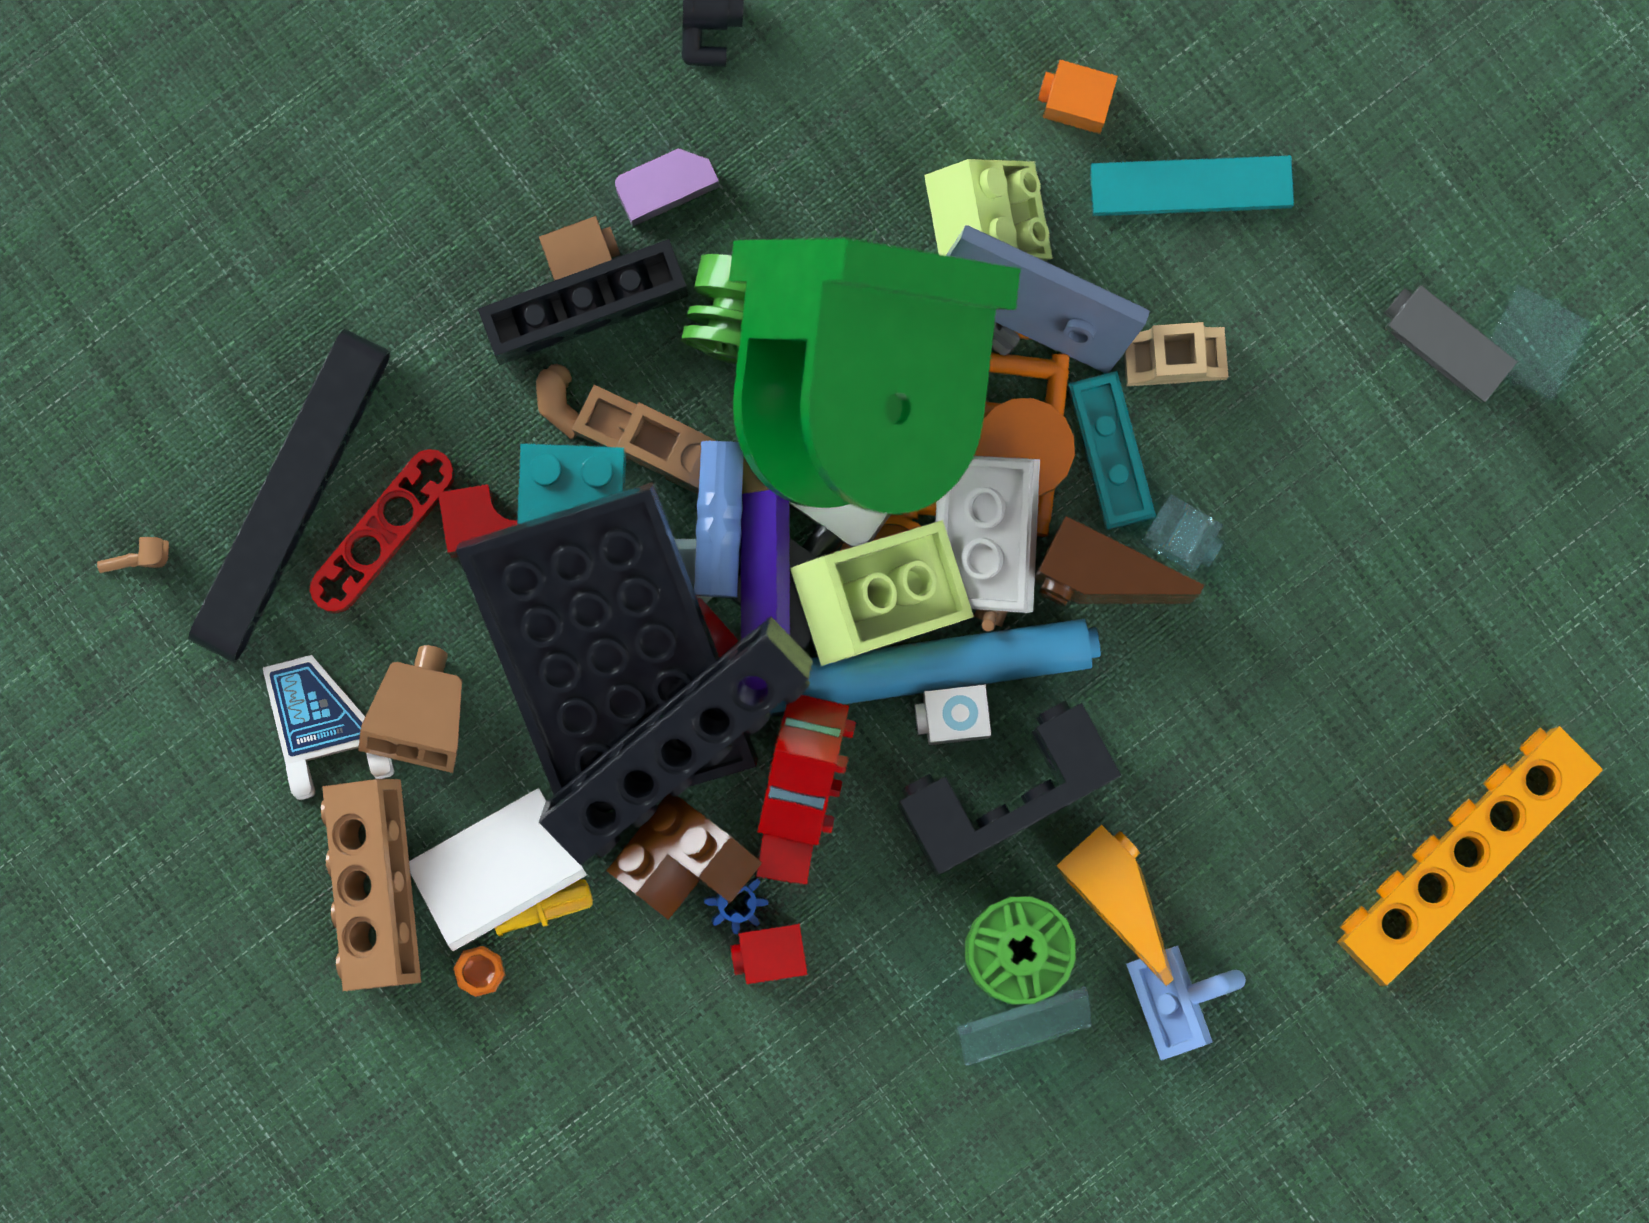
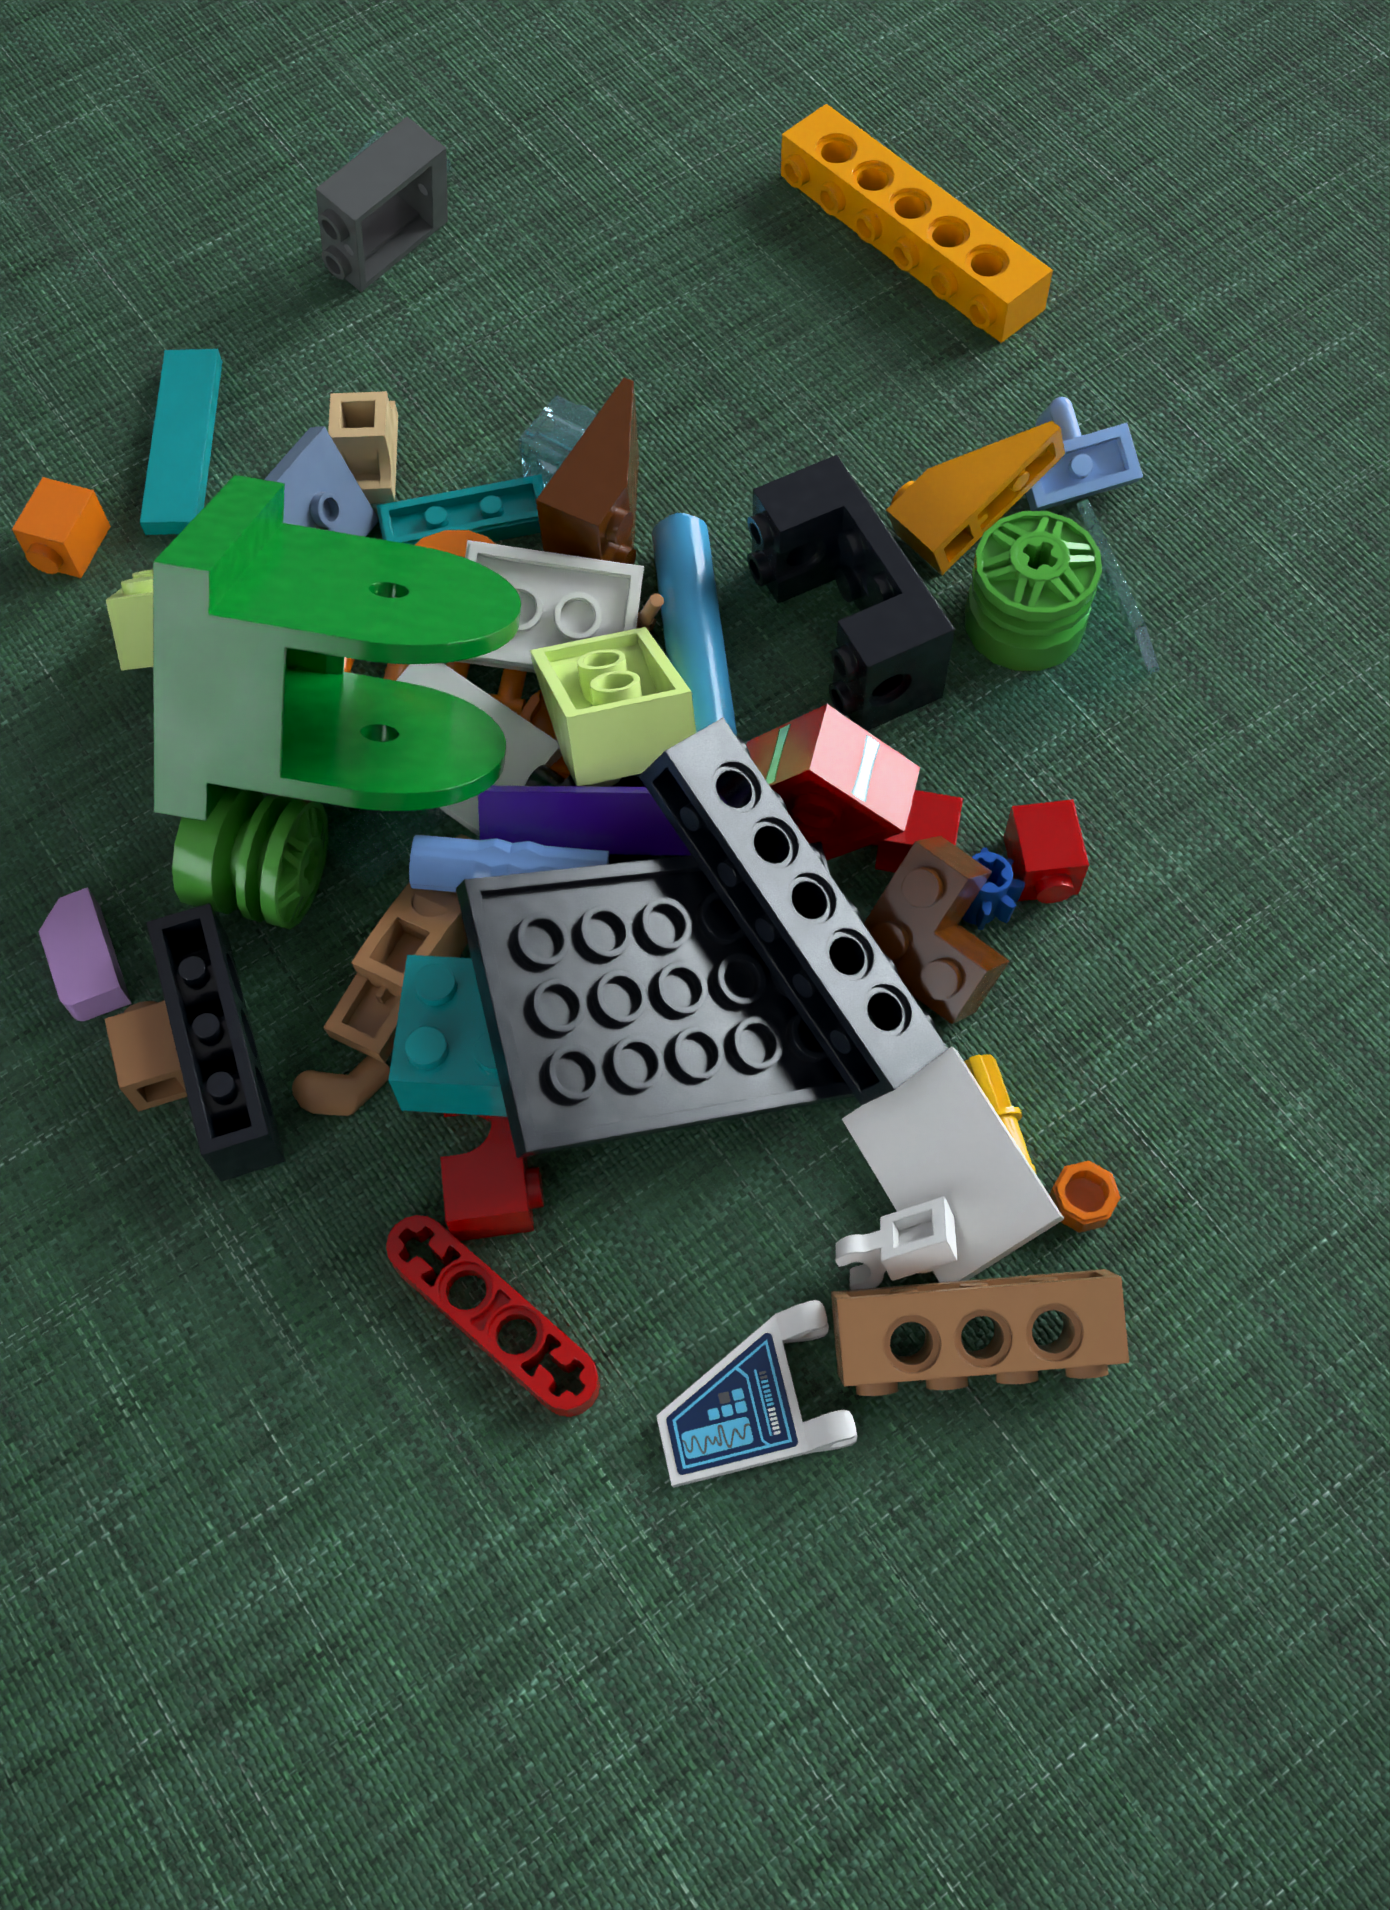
camera: 80 degrees left, 20 degrees down
(151, 554) = (499, 1646): medium nougat hand -> none
(289, 495) = (438, 1439): black beam -> none
(416, 713) = (744, 1259): medium nougat torso -> none
(430, 836) = (906, 1244): none -> white plate
(954, 715) = (758, 657): white brick -> none

